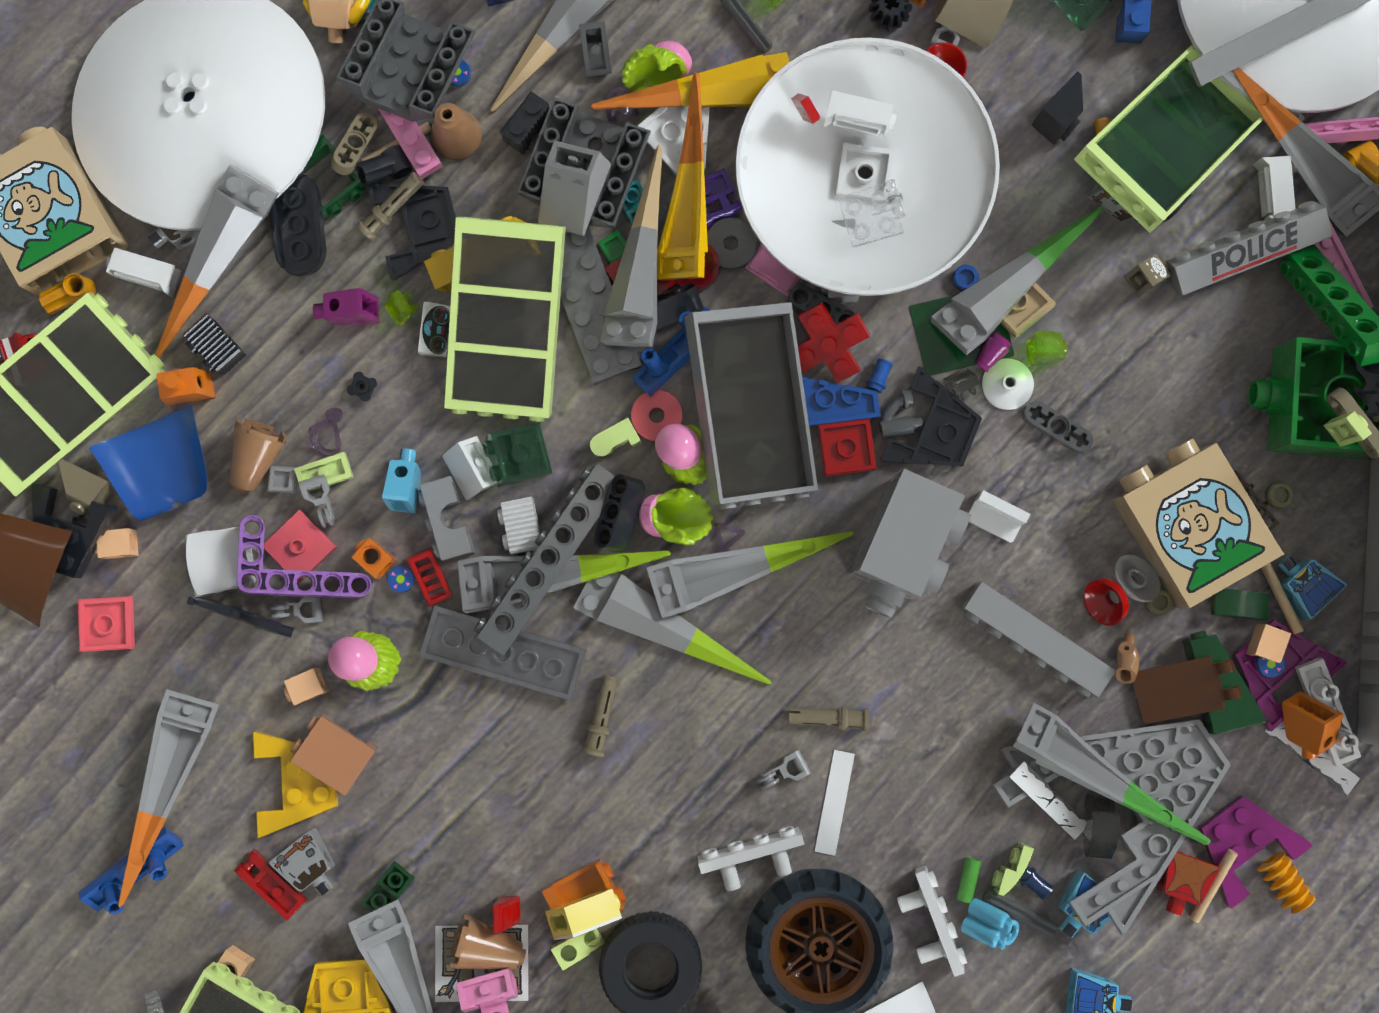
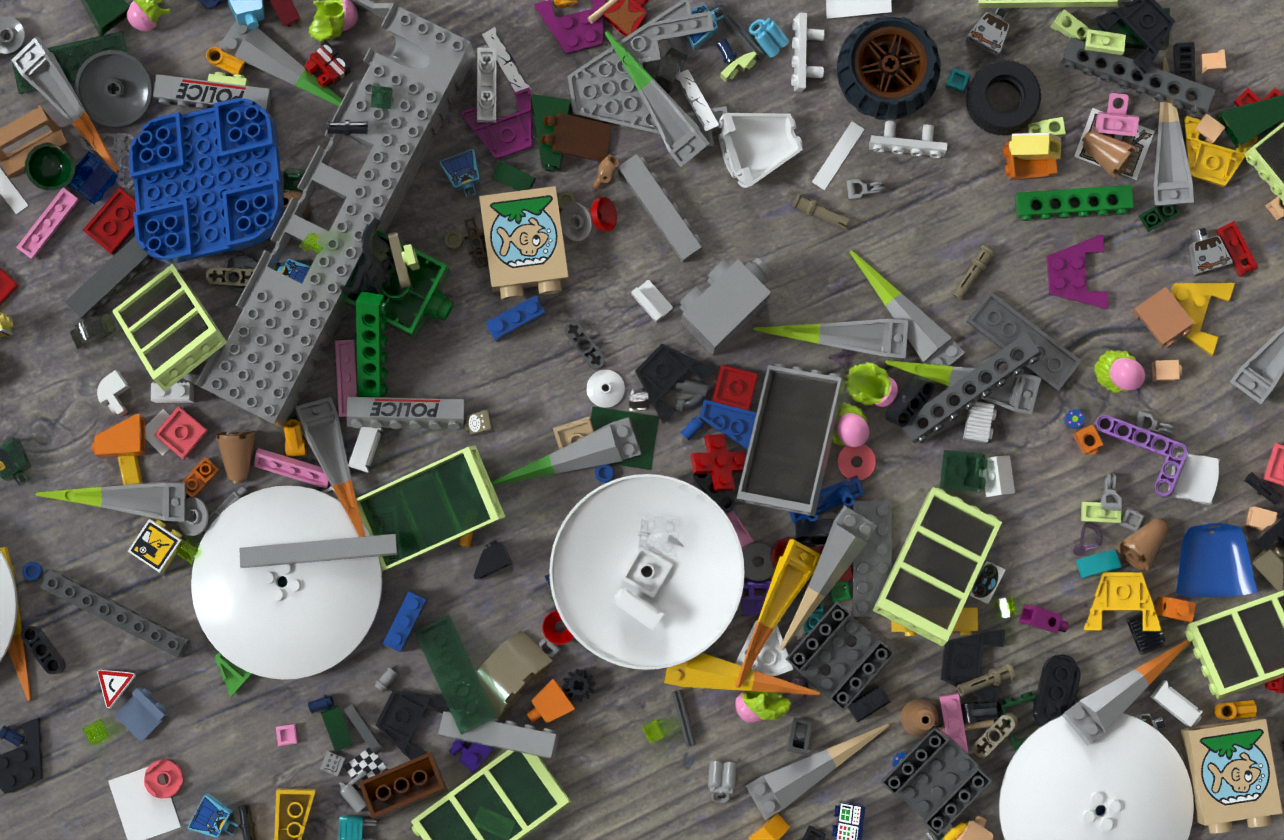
camera: 155 degrees left, 0 degrees up
(114, 580) = (1273, 497): none -> black pin
(239, 614) = (1186, 429): black piece -> none
(257, 380) = (1123, 593): none -> yellow wing
(299, 544) = (1135, 469): coral plate -> none
(303, 406) = (1098, 563): none -> teal slope
(367, 391) = (1052, 567): black plate -> none
(402, 483) = (1051, 474): medium azure torso -> none
(437, 498) = (1032, 430): light grey arch -> none
(441, 596) = (1054, 429): red slope -> none
(446, 897) = (1122, 195): none -> green brick
(477, 764) = (1068, 273): none -> magenta wing
(506, 913) = (1086, 168): red slope -> none
(571, 186) = (856, 639): light grey slope -> none
(617, 435) = (893, 457): yellowish green leg -> none
(718, 966) = (958, 80): none -> teal tile
(806, 108) = (674, 627): red tile -> none
(947, 774) = (756, 144): none -> white cone
(968, 880) = (770, 70): bright green hinge -> none
(992, 351) = (608, 413): magenta cone -> none
(1045, 348) = (571, 400): clear neon green slope -> none
(1161, 425) = (515, 317): none -> blue arch
(1268, 642) = (509, 143): light nougat panel -> none
(1268, 668) = (512, 130): blue tile -> none
(1282, 599) = (484, 169): tan bar -> none
(1310, 724) = (504, 81): orange torso -> none

